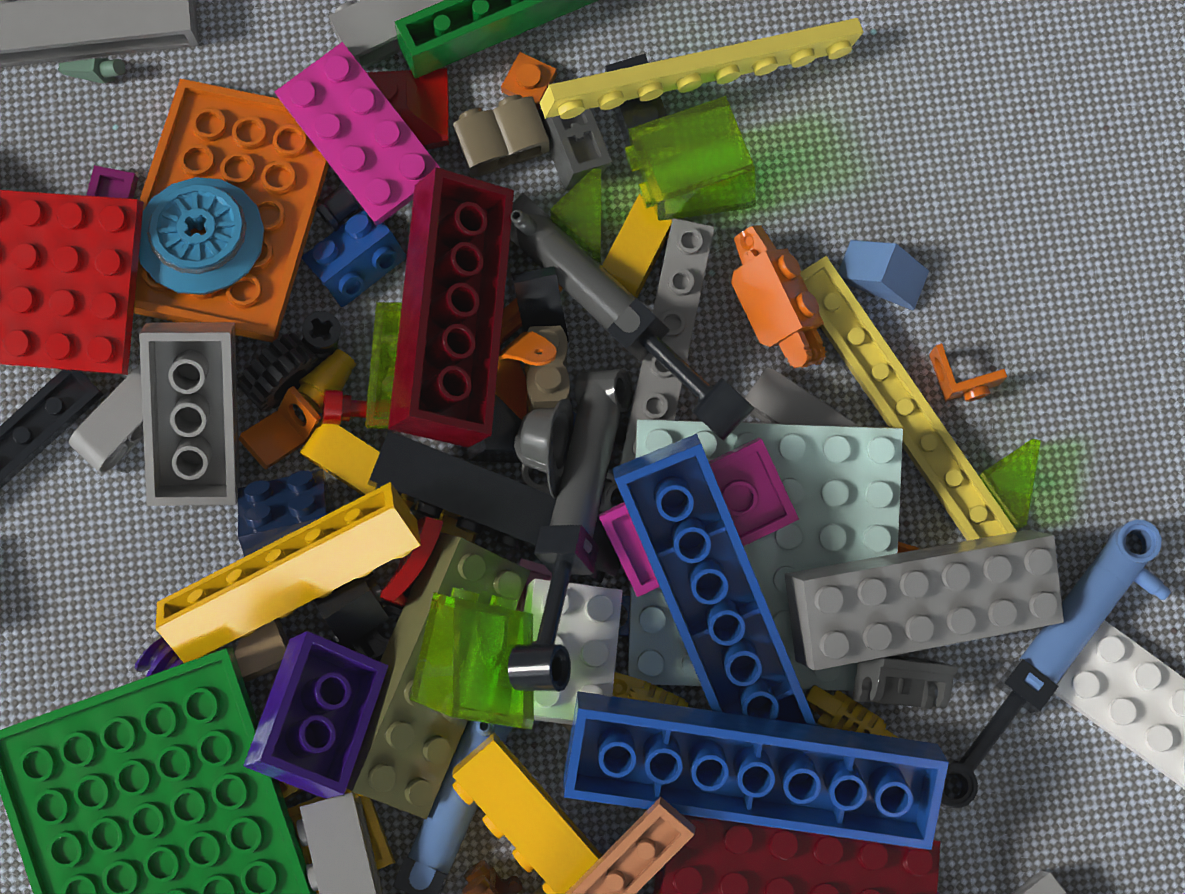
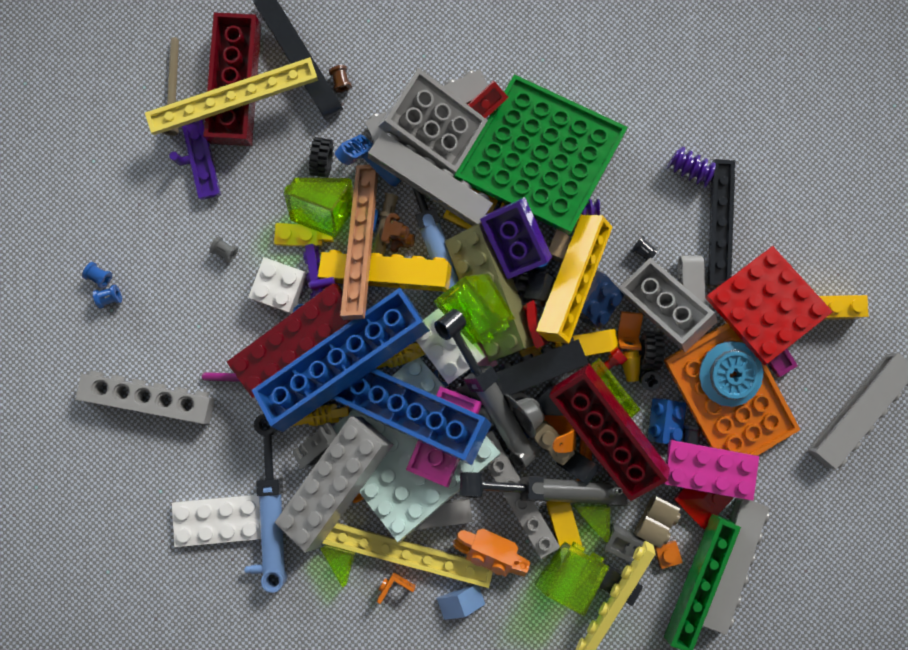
camera: 135 degrees right, 5 degrees up
(96, 70) = (836, 403): sand green bar -> none
(149, 542) = (638, 249): none -> black bush

